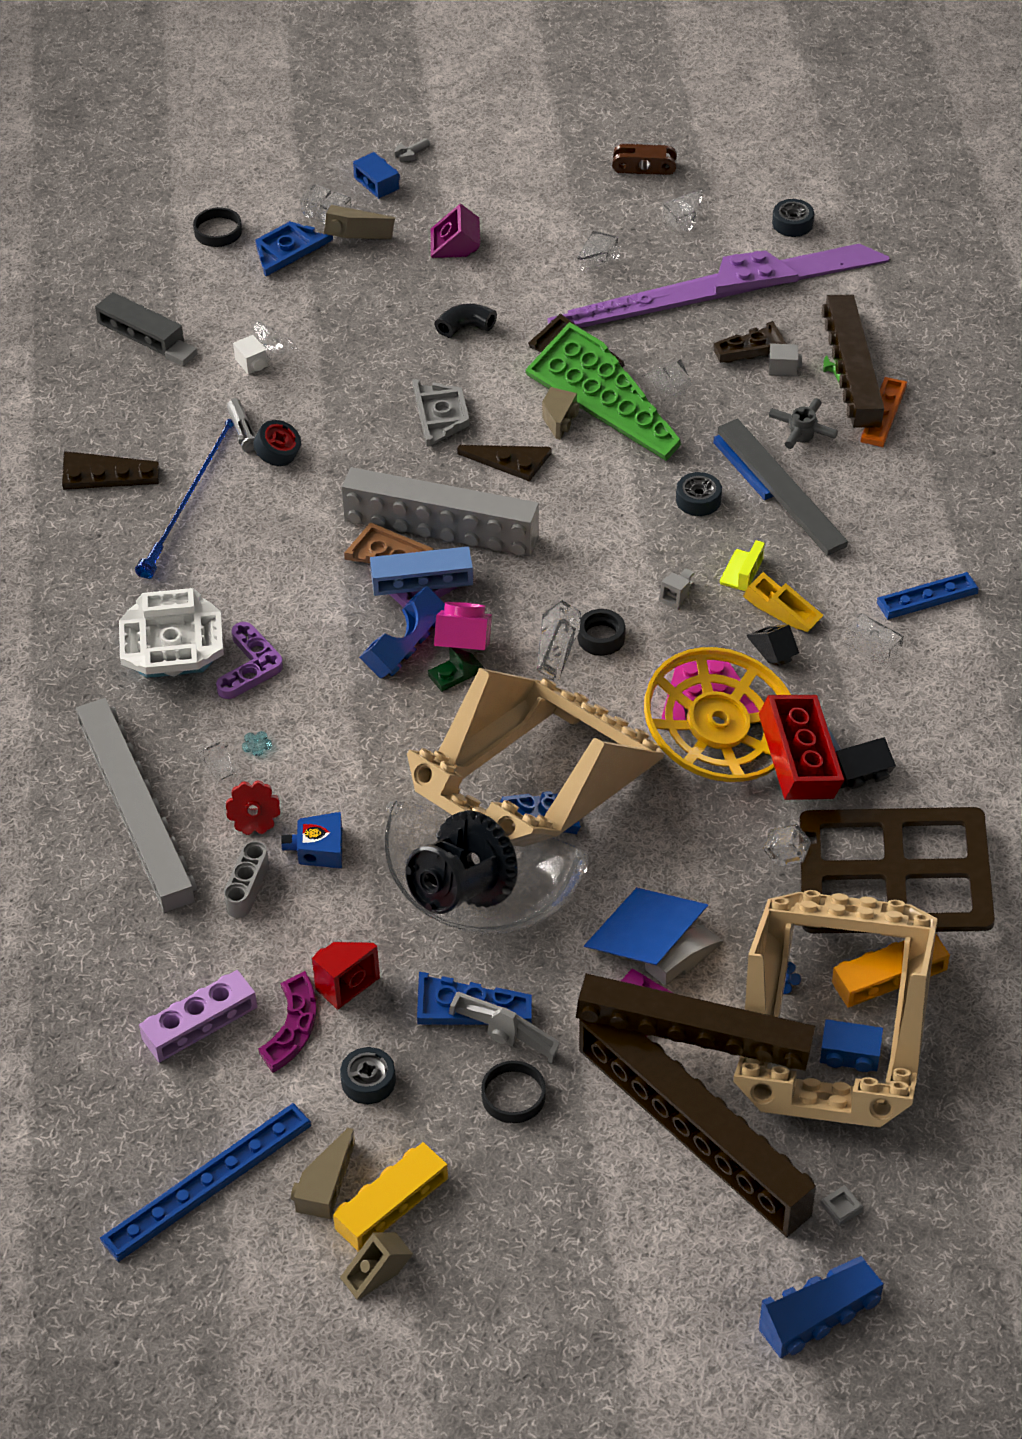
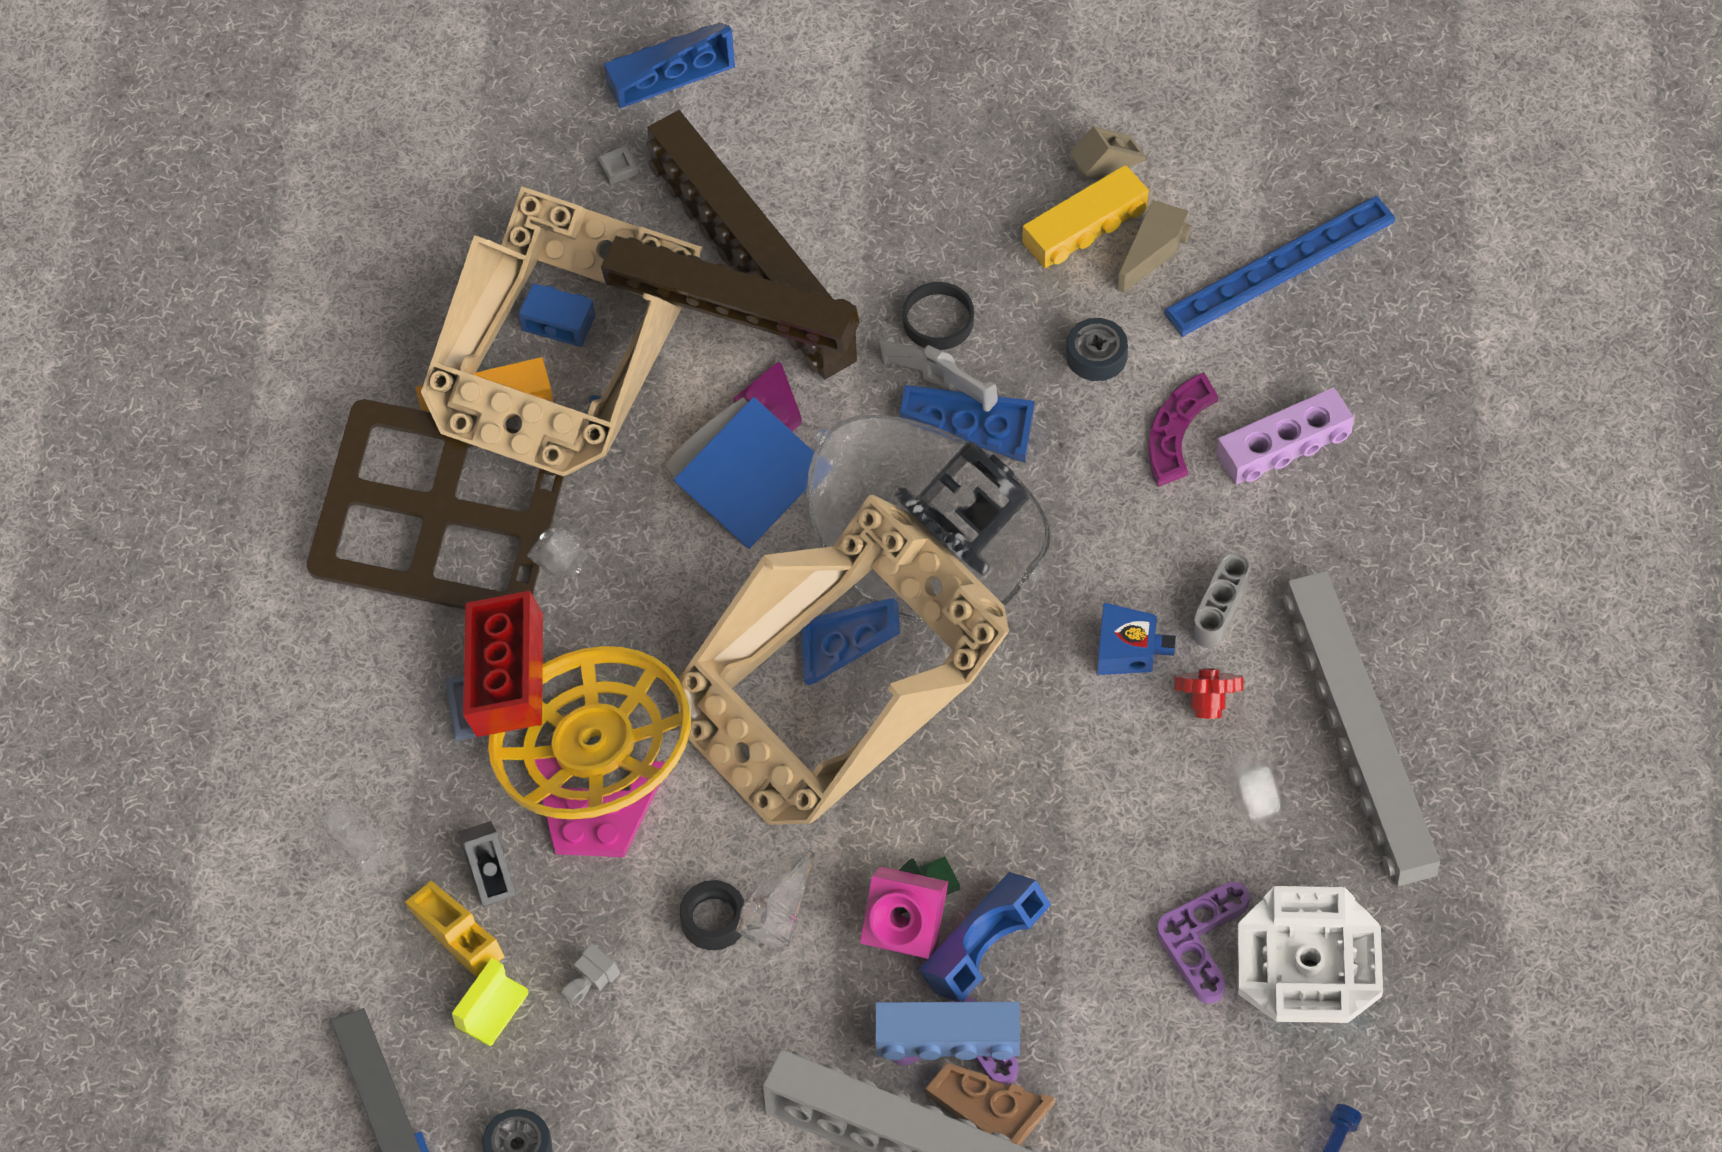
camera: 170 degrees left, 10 degrees up
(256, 743) = (1199, 808): clear light blue plant -> none
(345, 970) = (1111, 449): red slope -> none
(865, 763) = (428, 657): black brick -> none
(927, 595) = (250, 925): blue tile -> none

